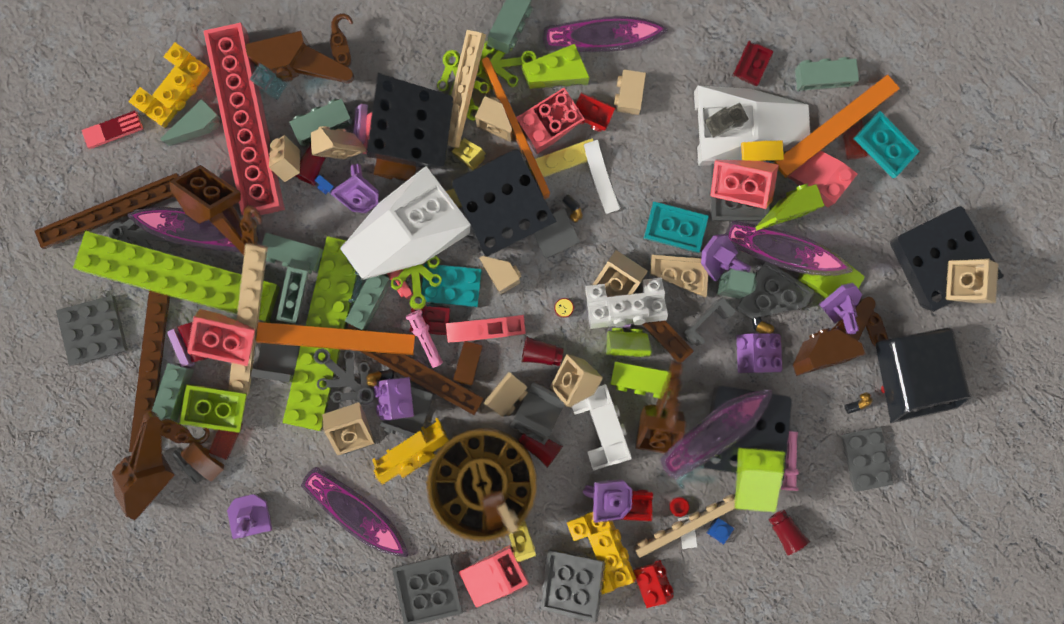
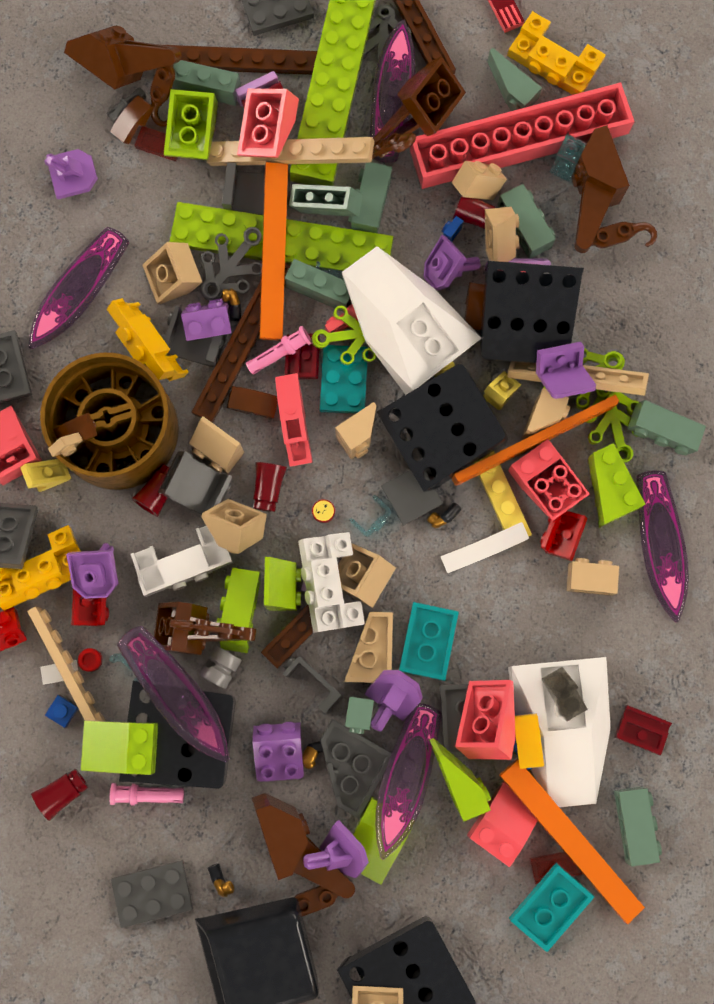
camera: 85 degrees right, 5 degrees down
(464, 98) = (563, 370): none -> medium lavender bracket
(576, 262) = (378, 524): none -> clear light blue piece
(692, 398) = (220, 667): none -> light grey wheel

